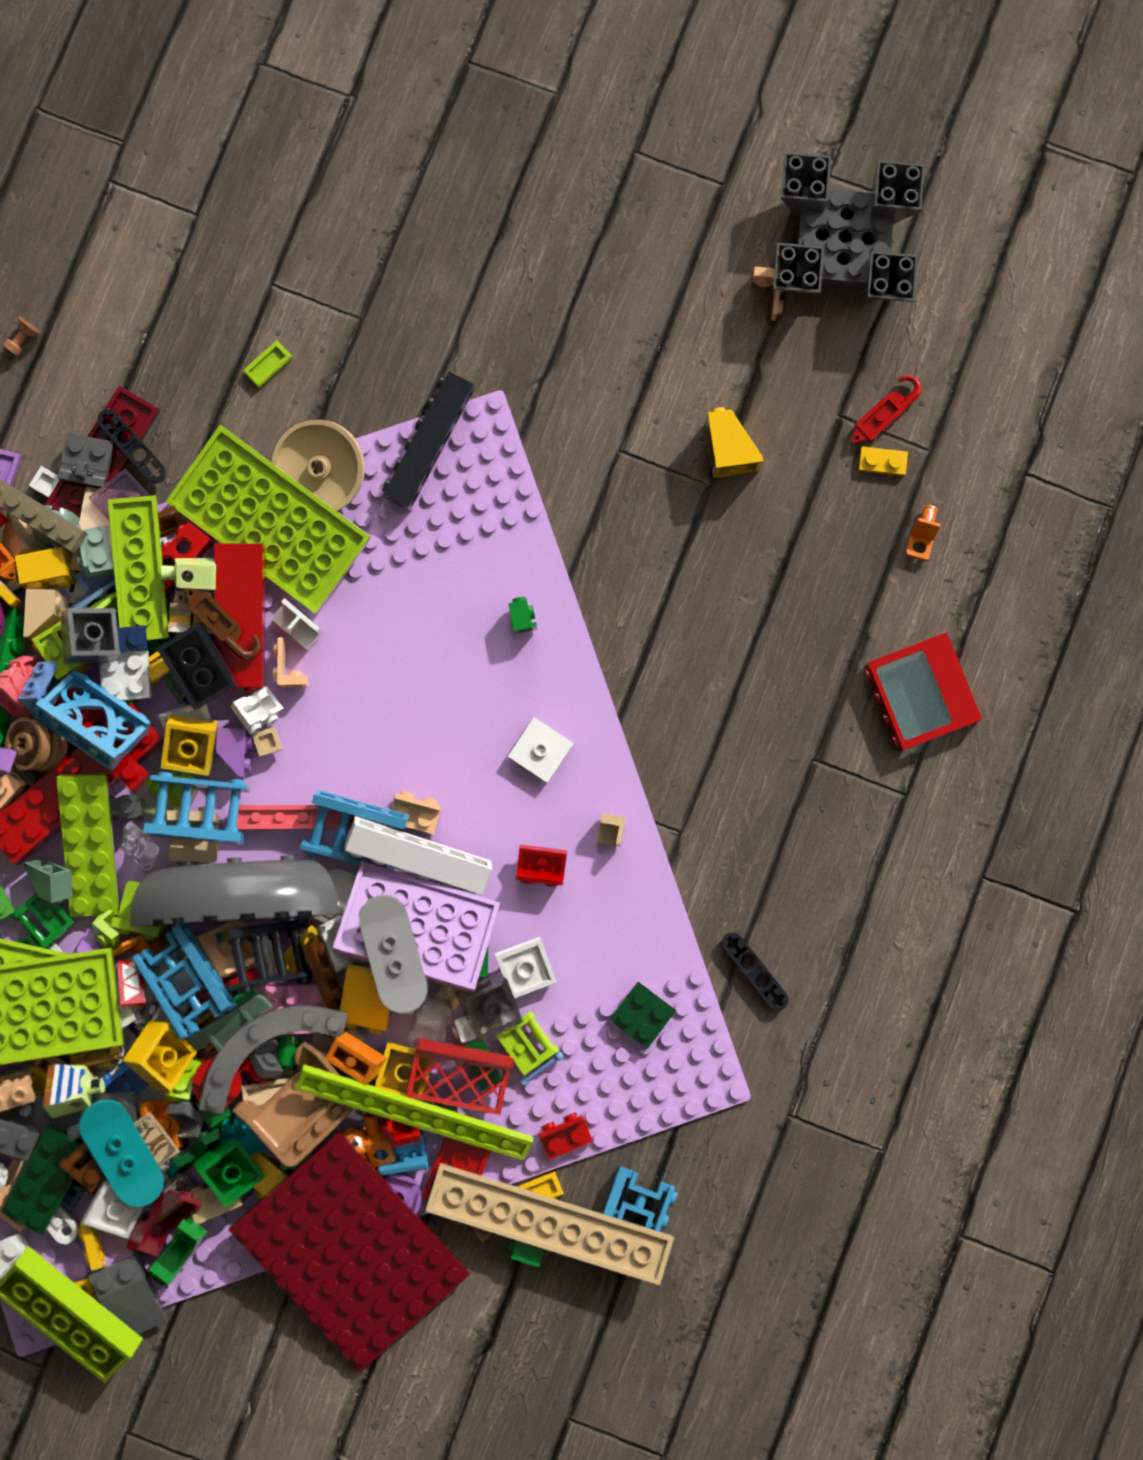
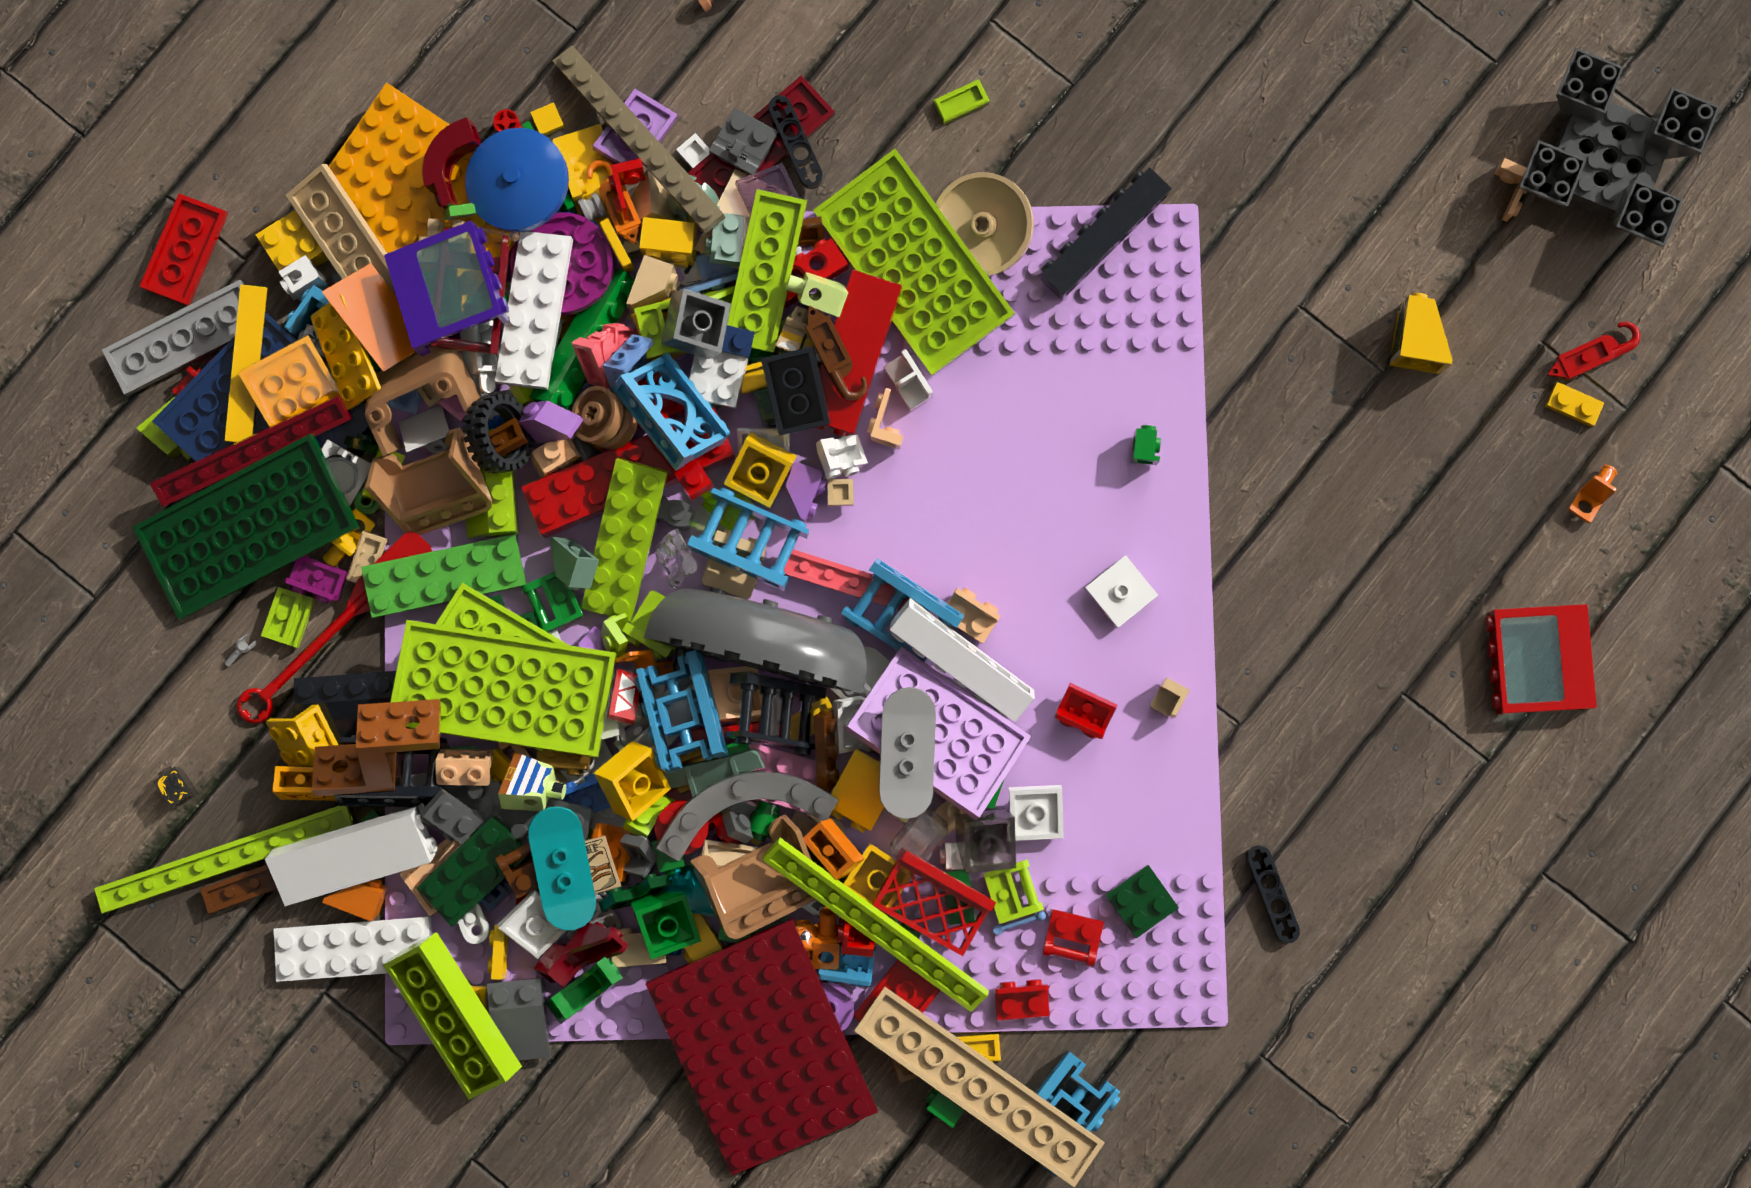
camera: 20 degrees right, 0 degrees up
(590, 1058) = (1075, 929): none -> red plate

